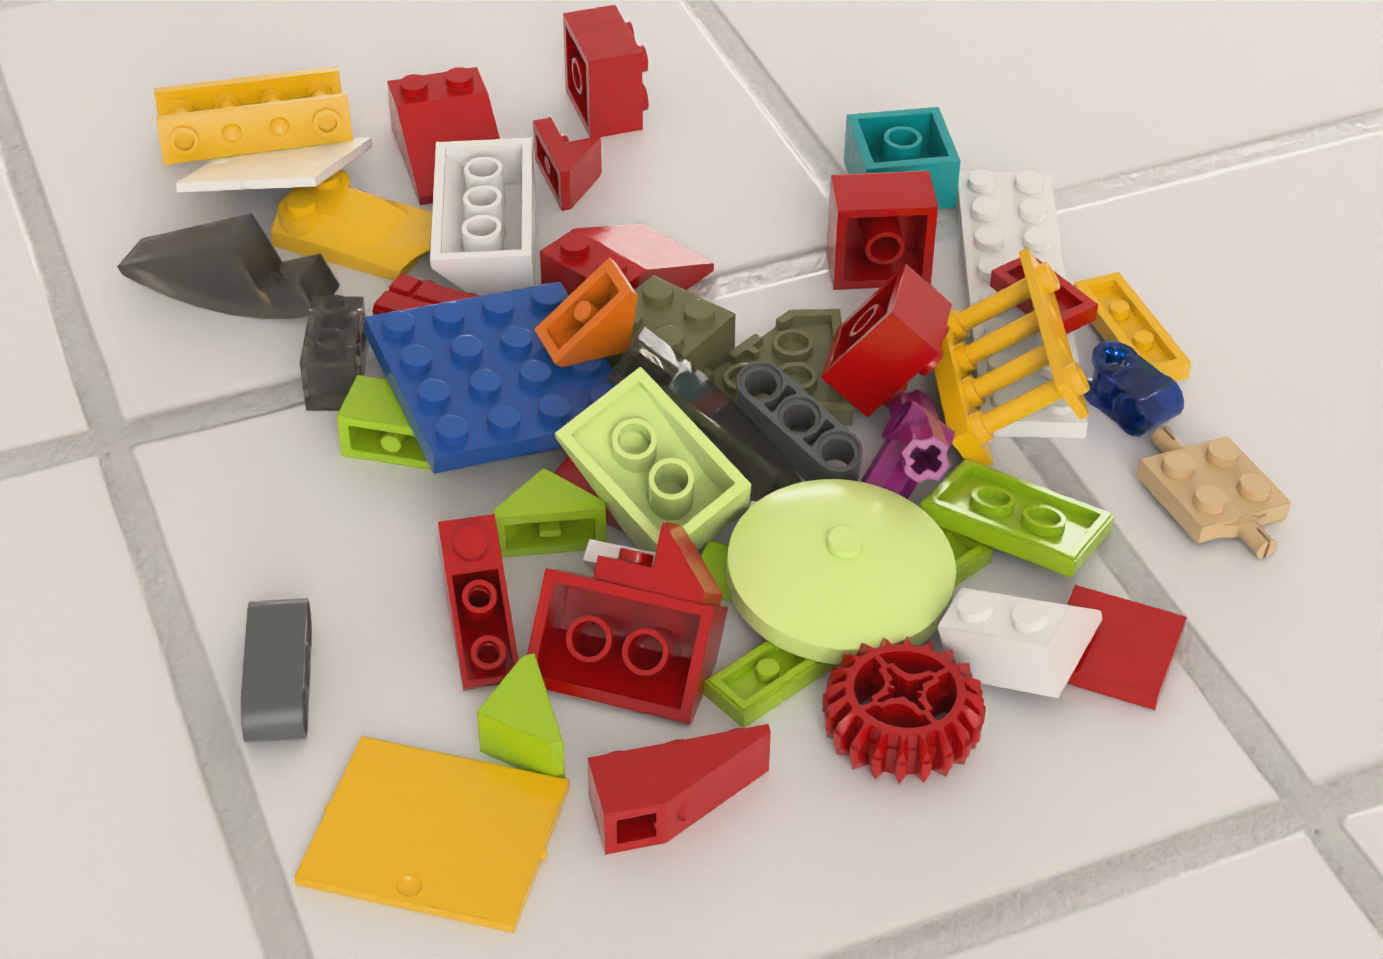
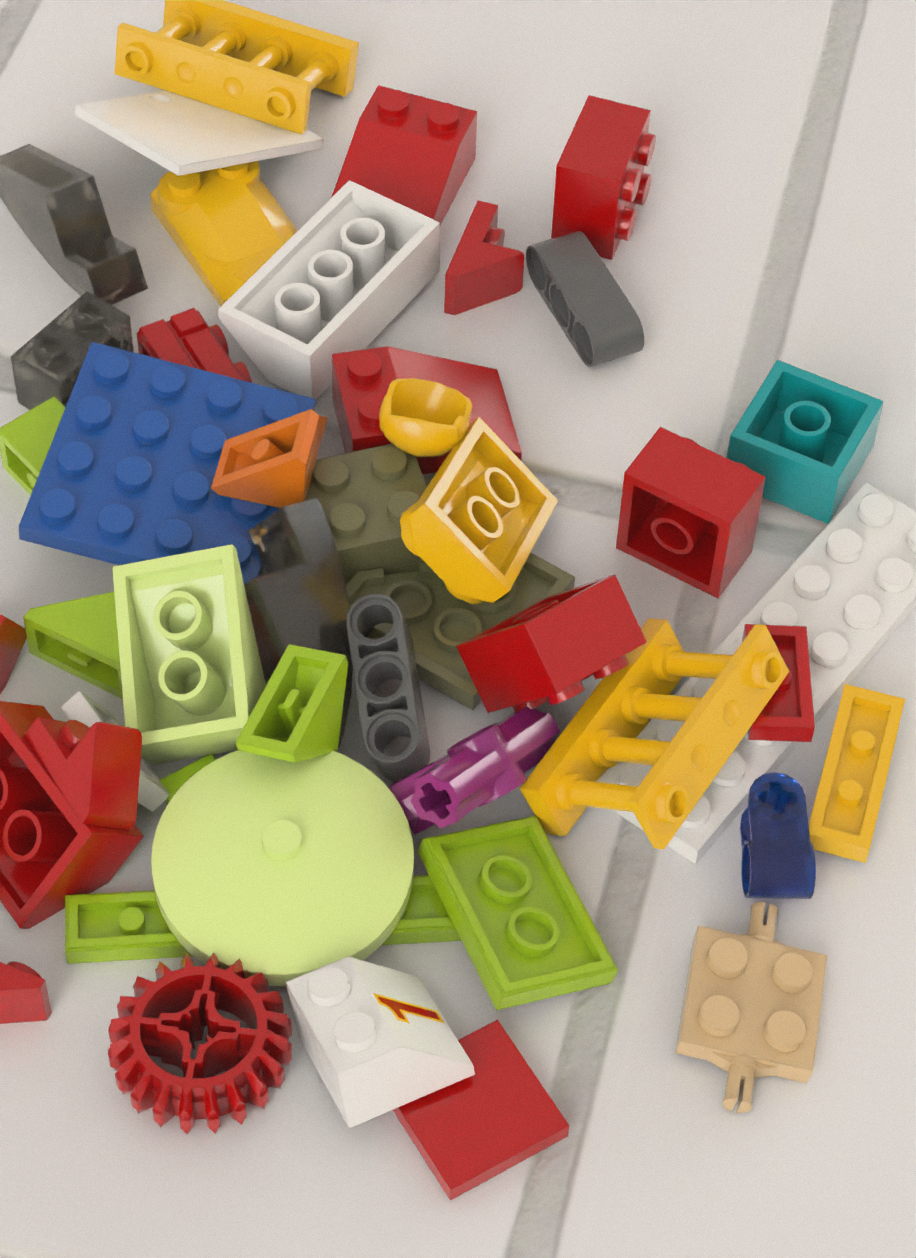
camera: 35 degrees right, 10 degrees up
(661, 152) = (584, 298): none -> dark grey beam
(663, 248) = (424, 416): none -> yellow hair
(754, 298) = (478, 517): none -> yellow slope
(769, 452) = (299, 707): none -> lime slope

